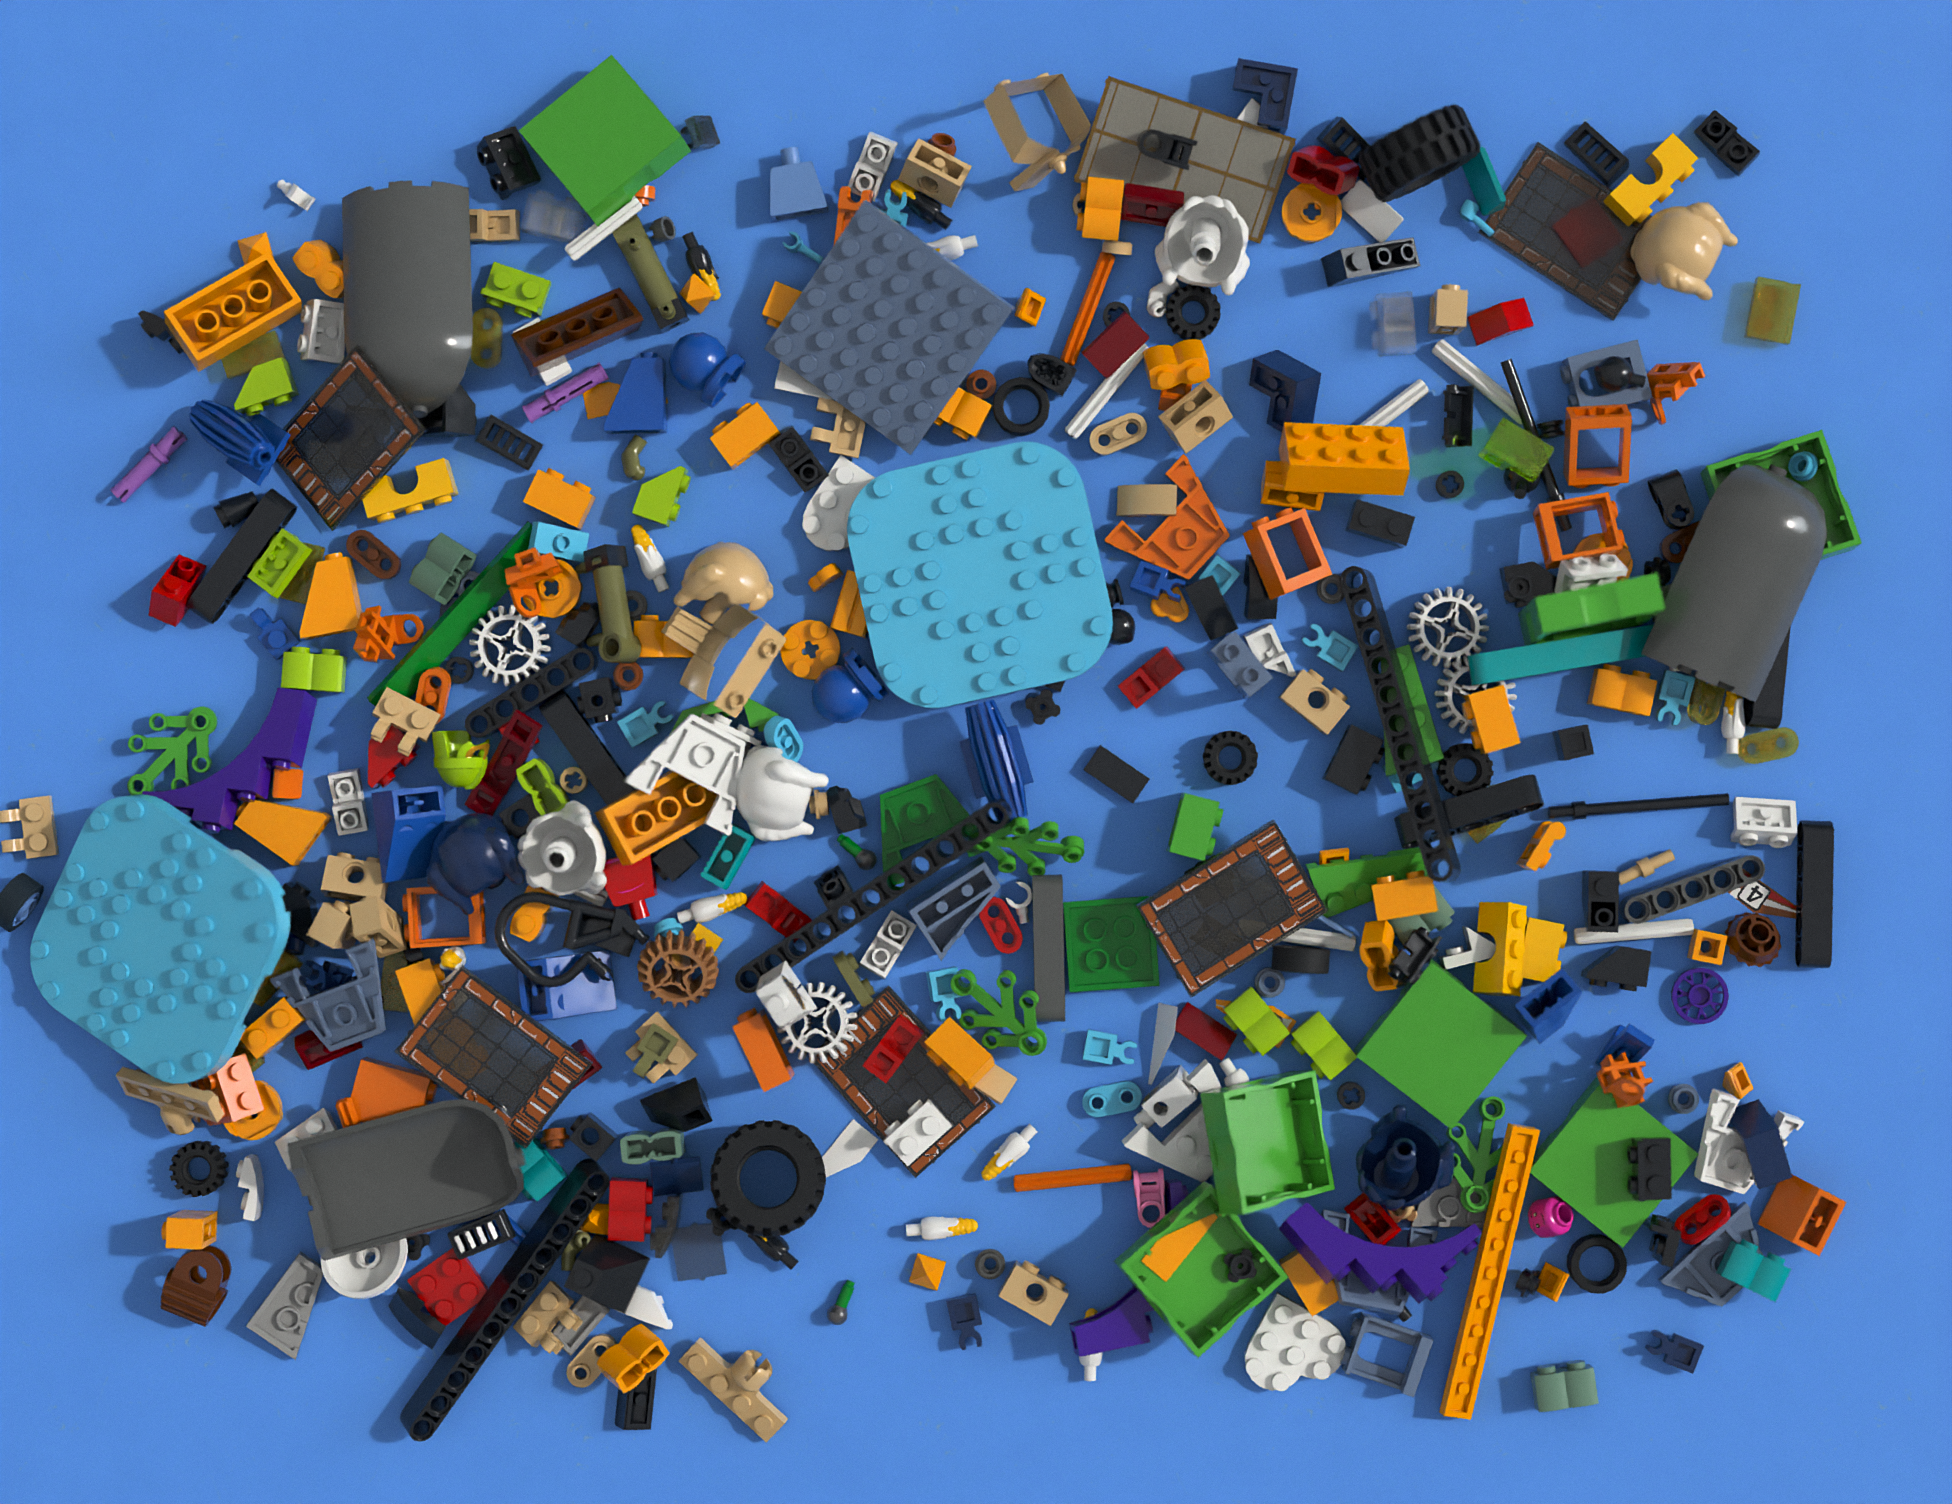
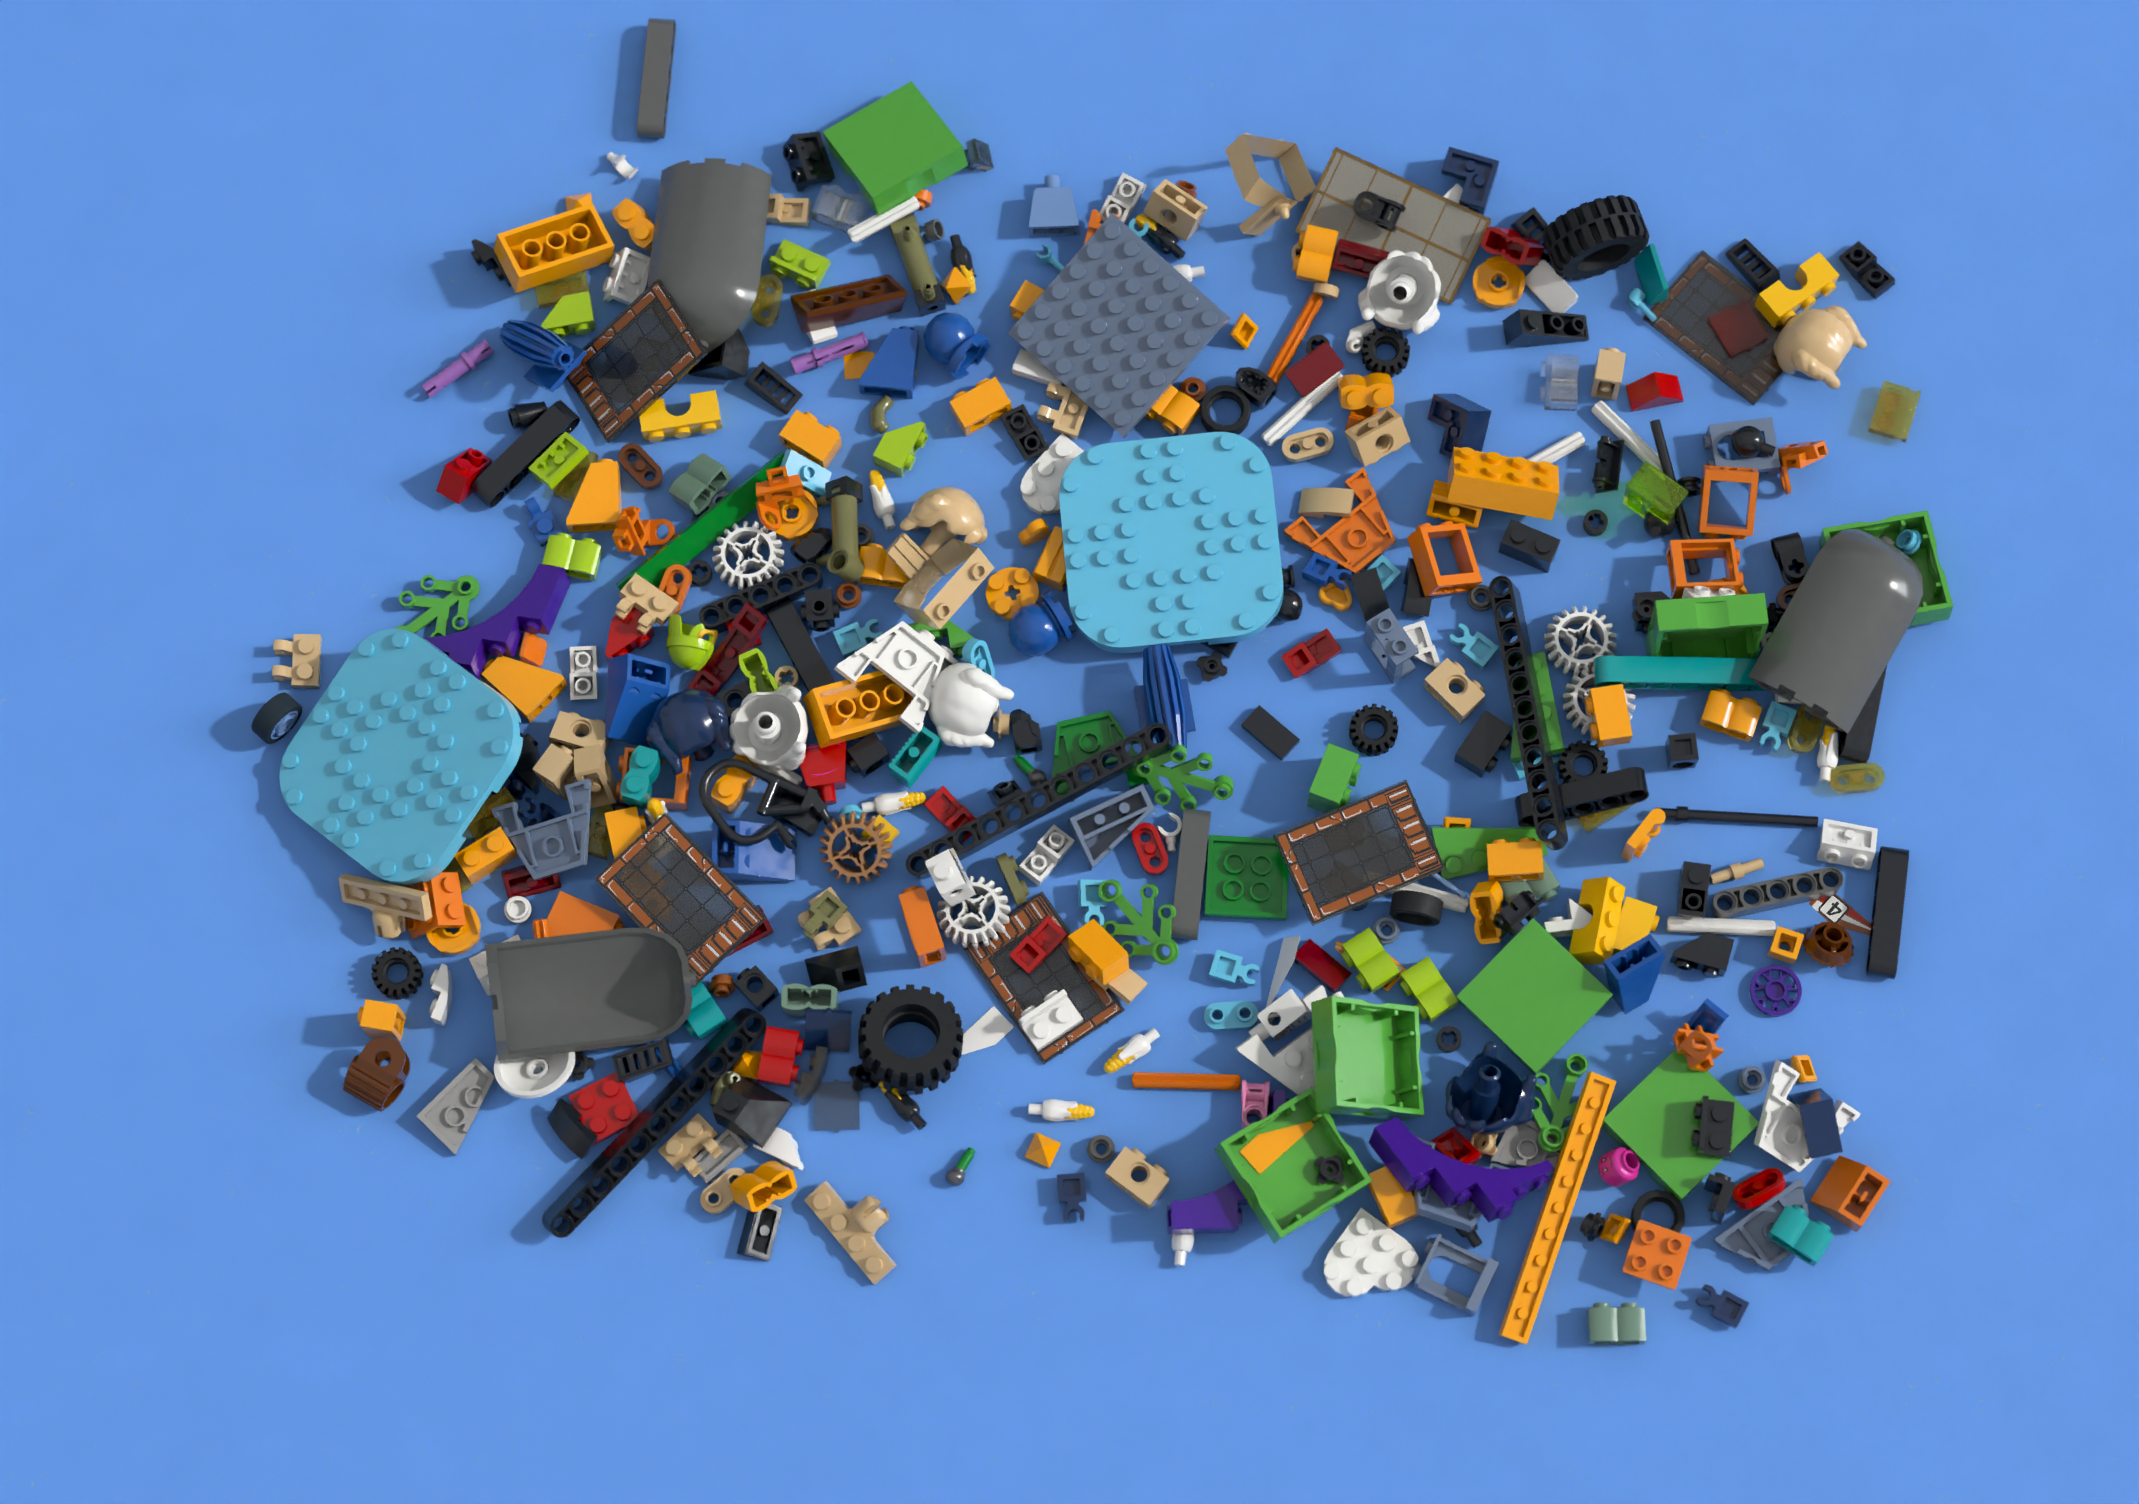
camera: 10 degrees right, 15 degrees down
(318, 83) = (656, 78): none -> dark grey beam
(318, 1080) = (517, 909): none -> white plate
(429, 917) = (637, 783): none -> teal brick
(1601, 1311) = (1656, 1254): none -> orange bracket

